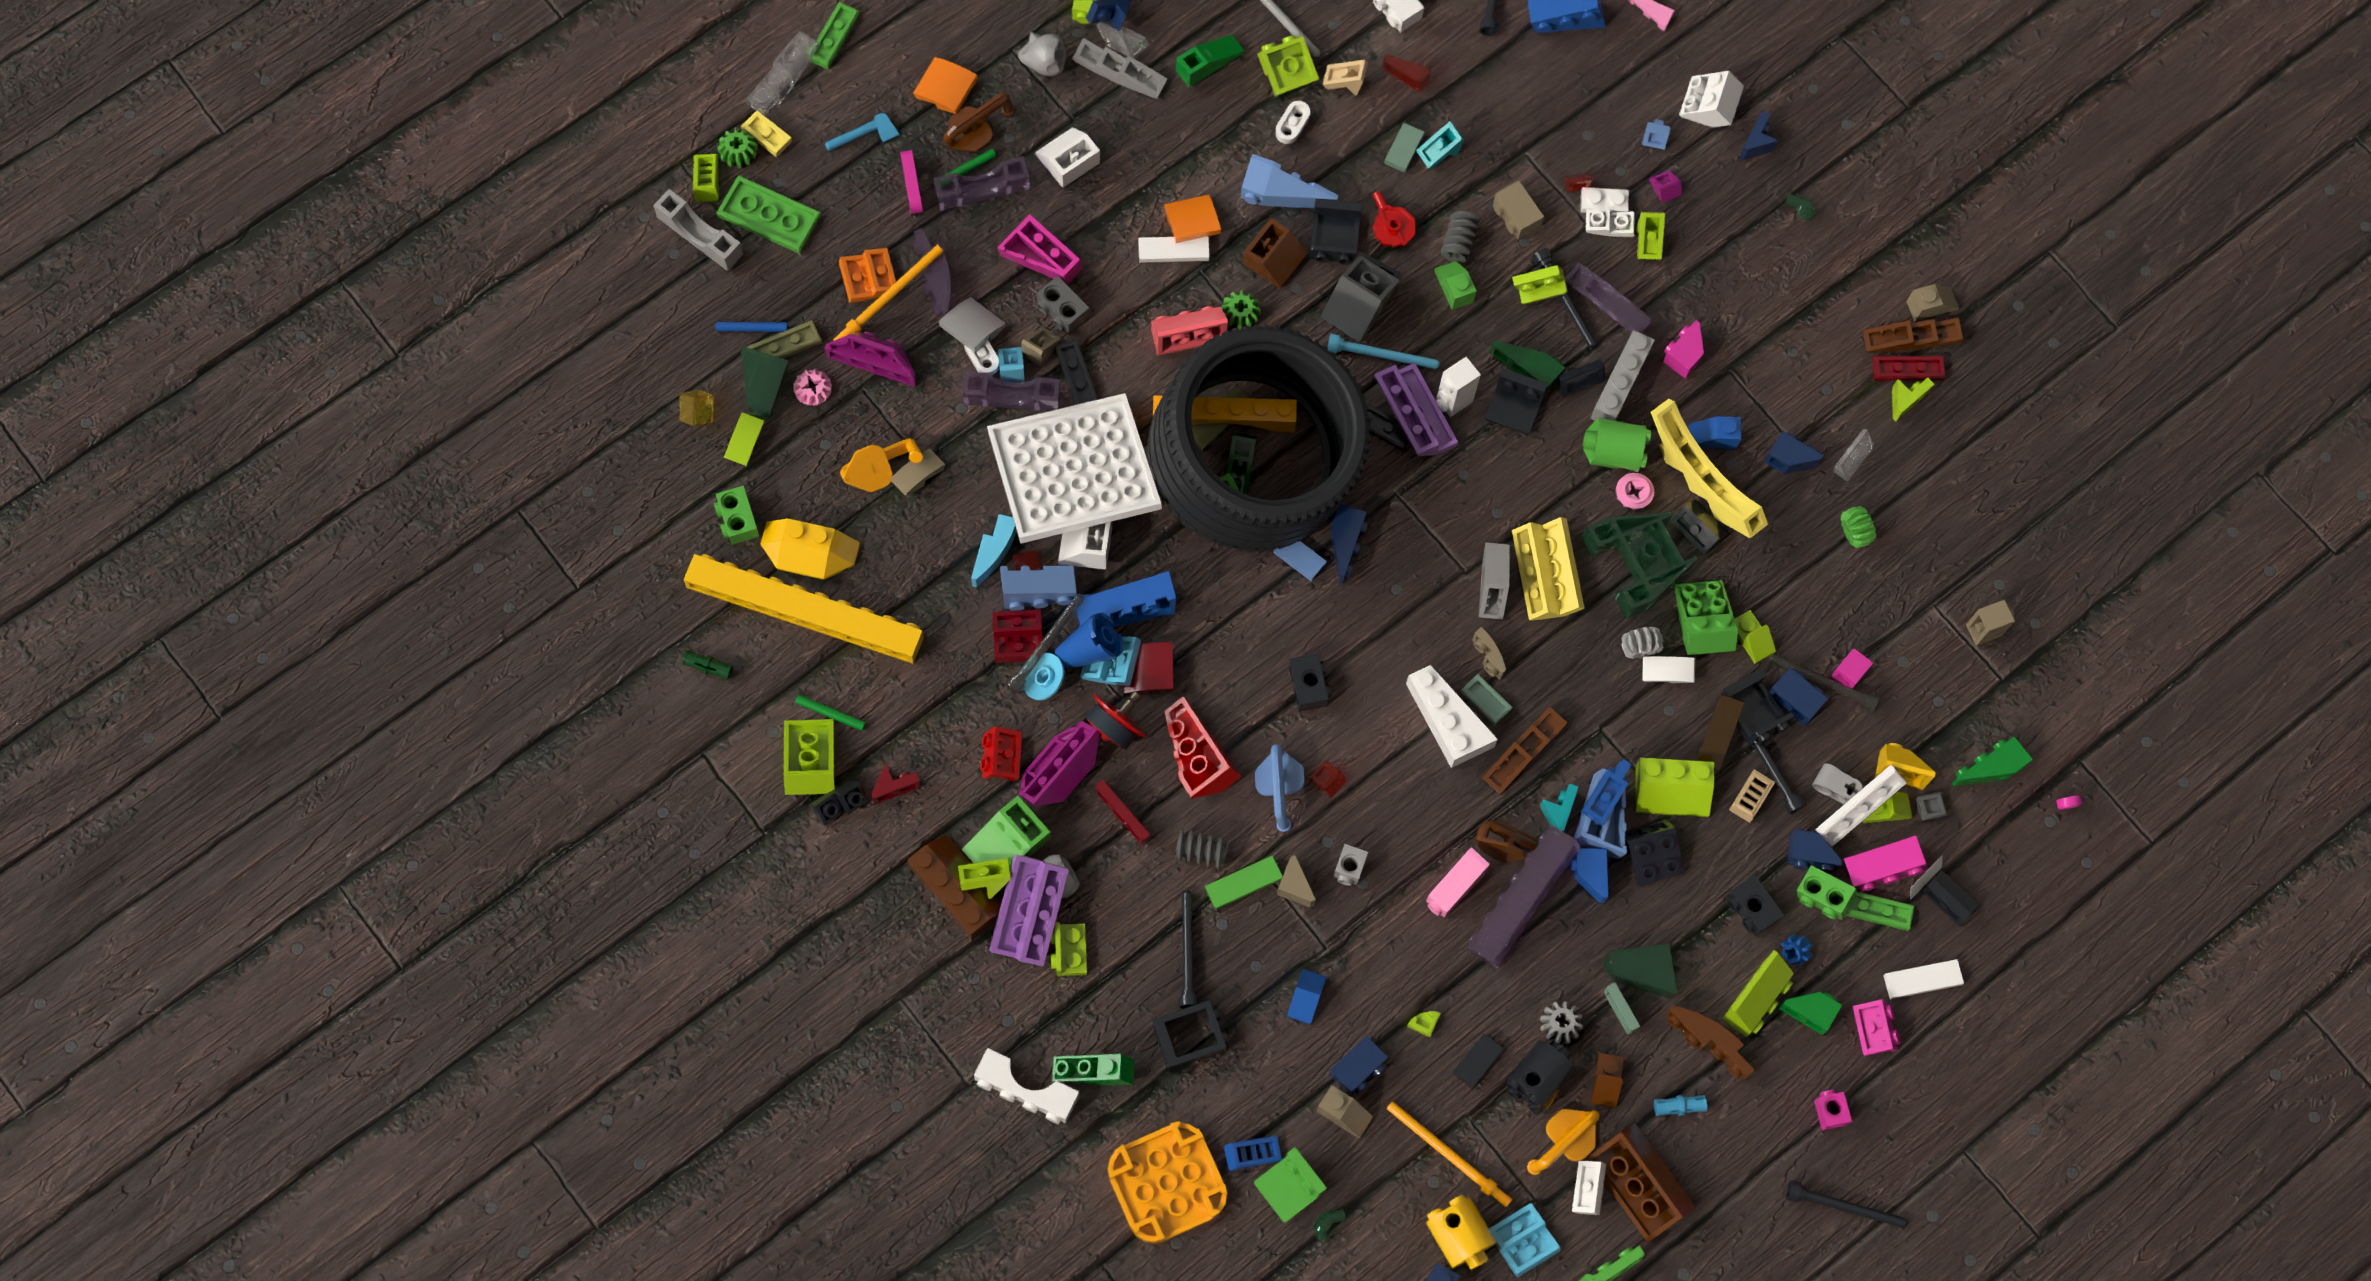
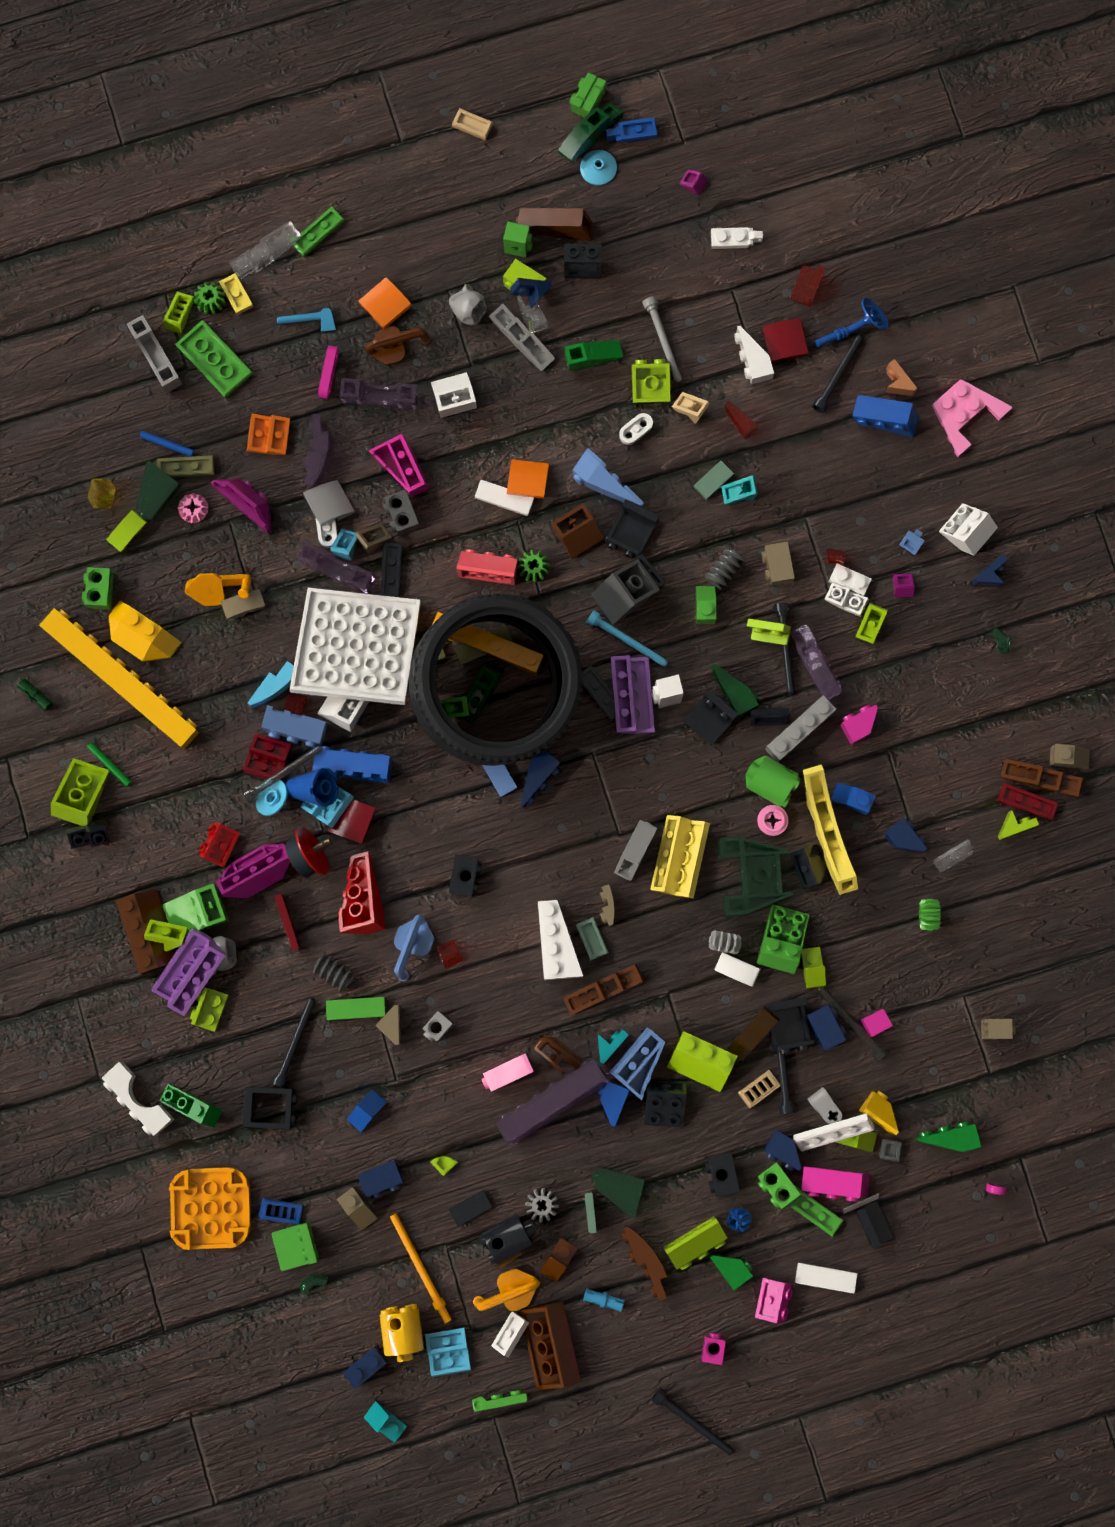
camera: 30 degrees right, 10 degrees up
(854, 325) = (241, 471): light orange bar -> none
(888, 789) = (126, 837): dark red slope -> none
(974, 163) = (378, 374): green bar -> none
(1393, 225) = (678, 540): red piece -> none
(1607, 793) = (644, 1051): blue hinge -> none

